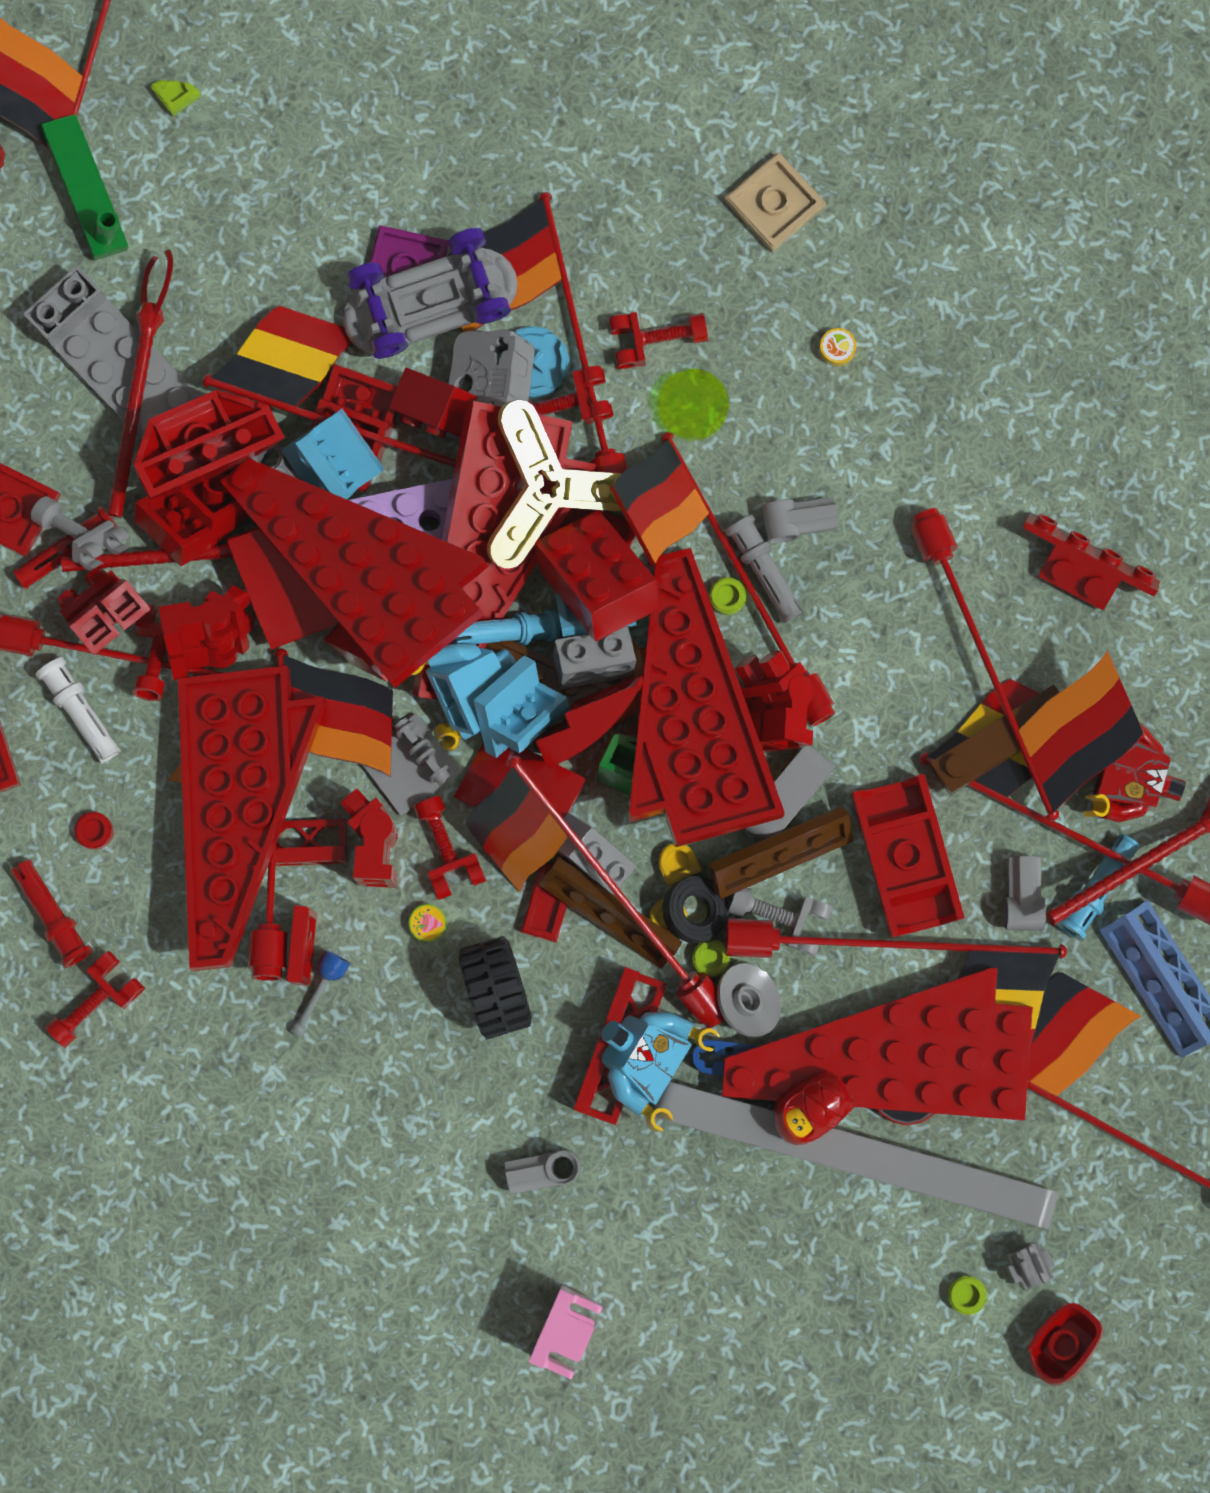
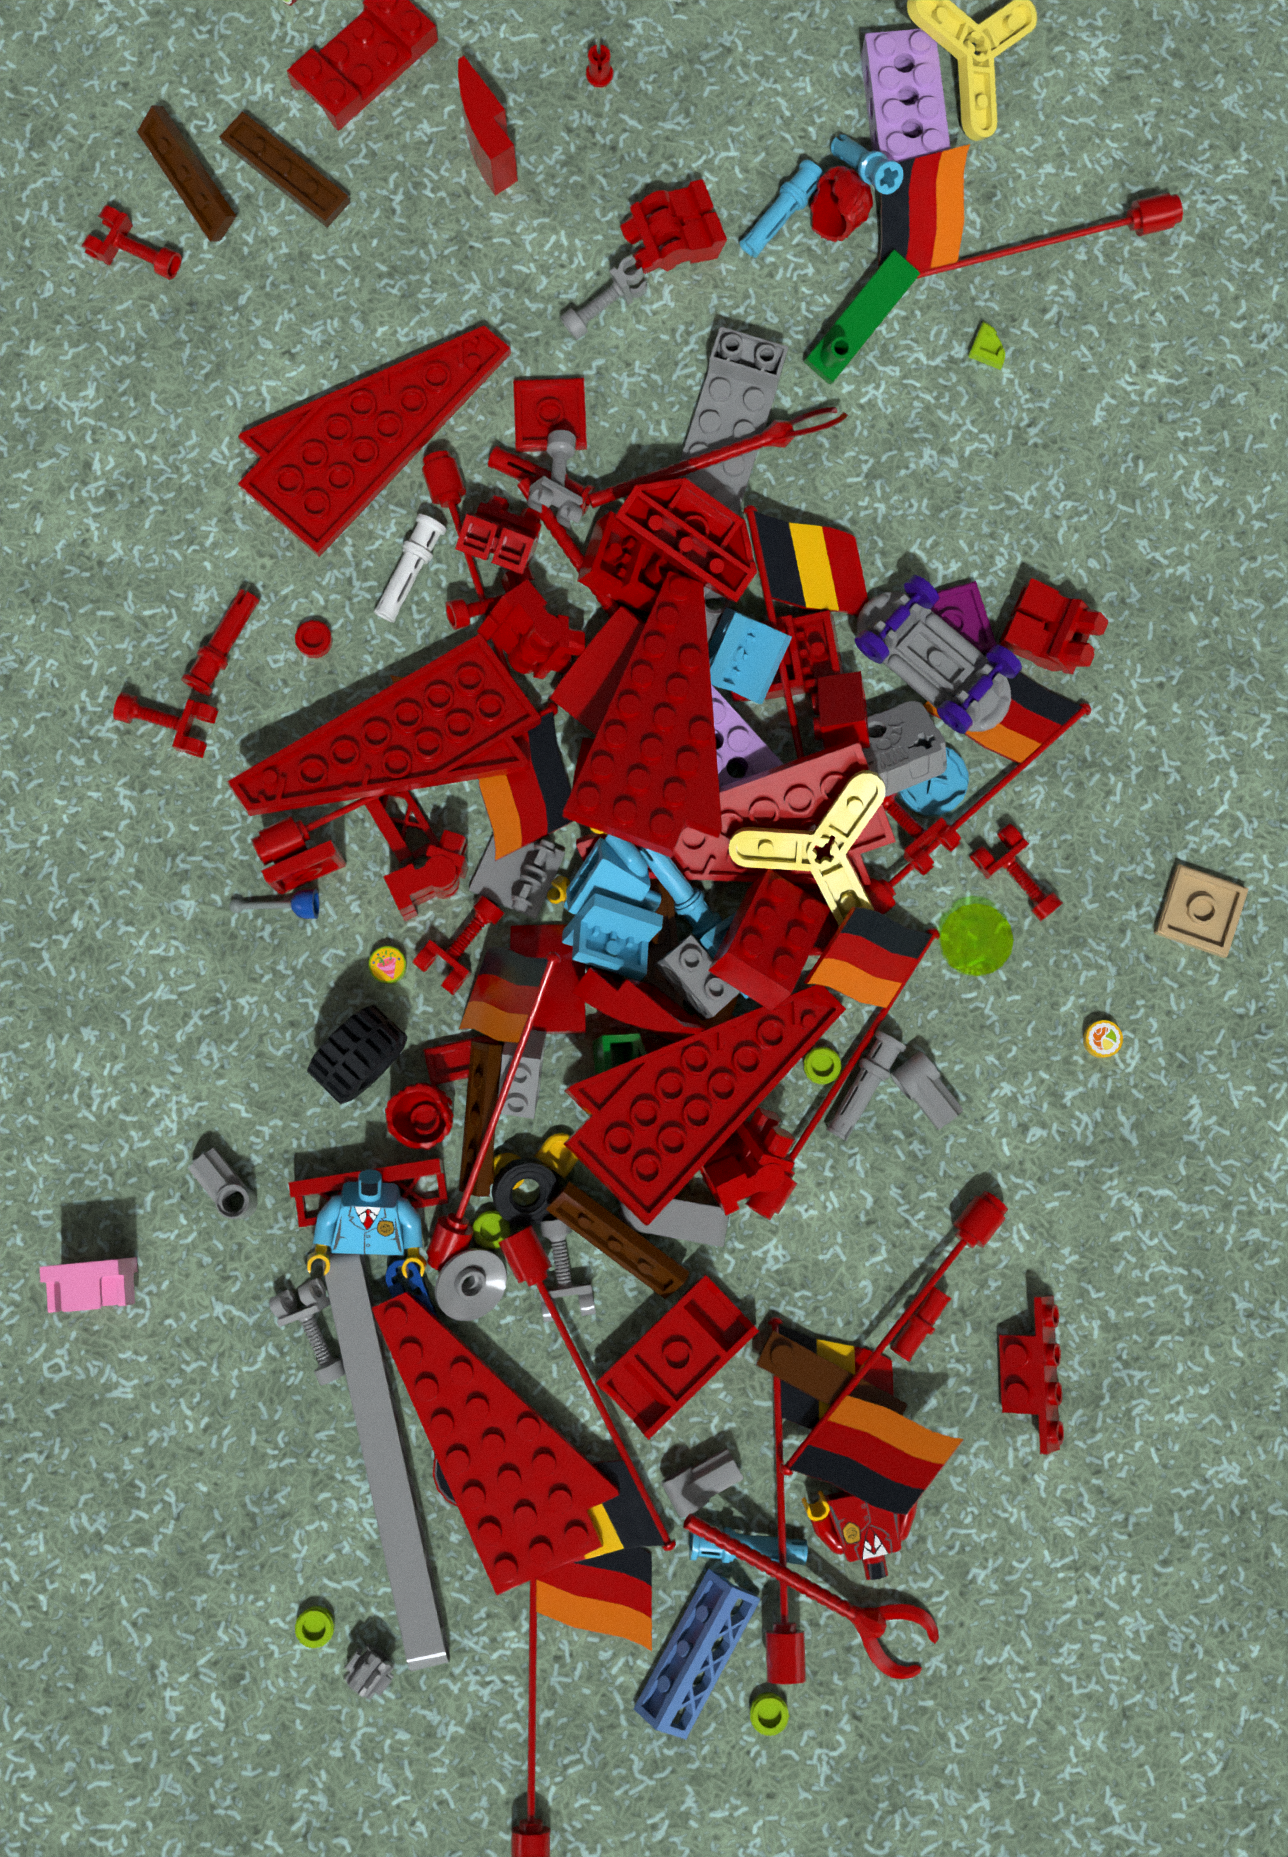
camera: 55 degrees right, 0 degrees up
(460, 185) = (1068, 626): none -> red hips
(578, 963) = (419, 1116): none -> red hair
(686, 1141) = (314, 1297): none -> light grey bar
(812, 1108) = (400, 1396): red piece -> none
(992, 636) = (920, 1324): none -> red pin
(1064, 1344) = (314, 1743): red piece -> none

